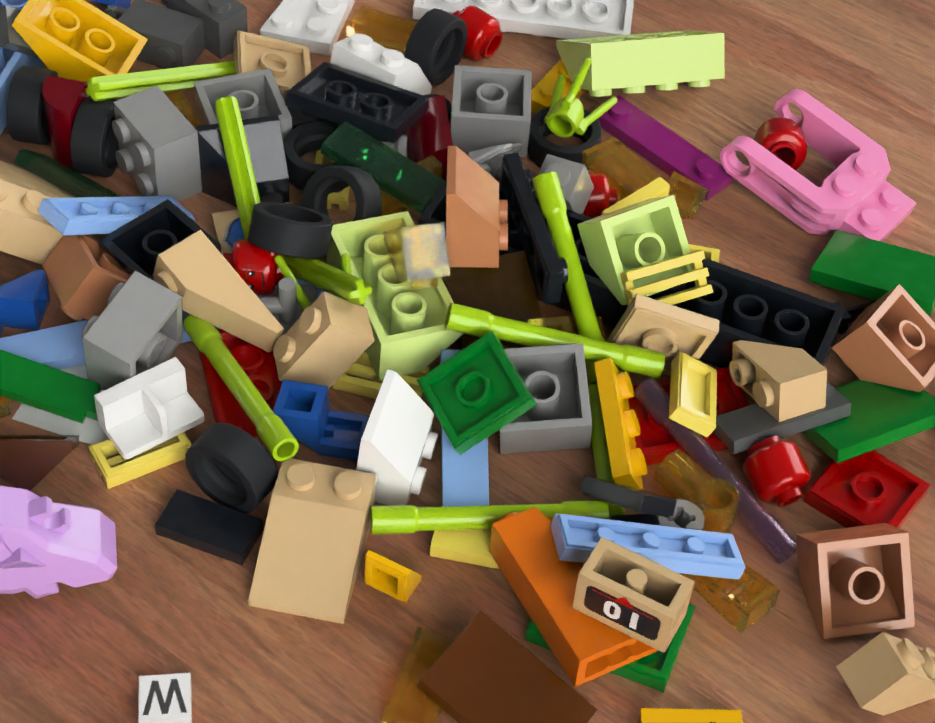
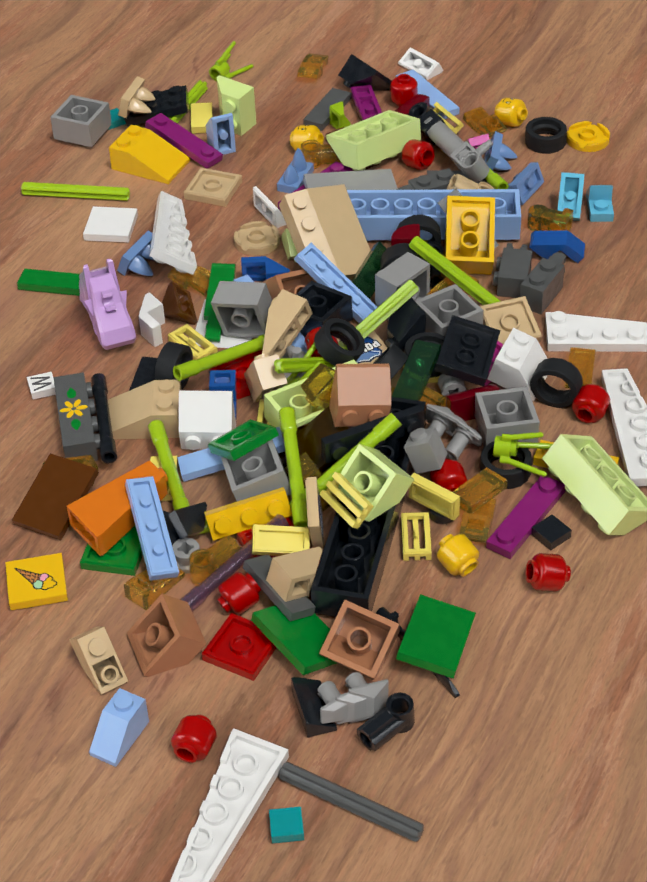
camera: 85 degrees right, 5 degrees down
(88, 491) = (151, 319): none -> white slope
(147, 409) = (209, 332): white panel -> none
(231, 602) = (107, 443): none -> black piece
(295, 646) = (75, 416): none -> dark grey brick
(390, 576) = (130, 445): yellow slope -> none
(632, 594) = (94, 505): tan brick -> none
(697, 130) = (551, 532): none -> black tile
(736, 220) = (458, 554): none -> yellow head
(849, 199) = (512, 620): bright pink plate -> none

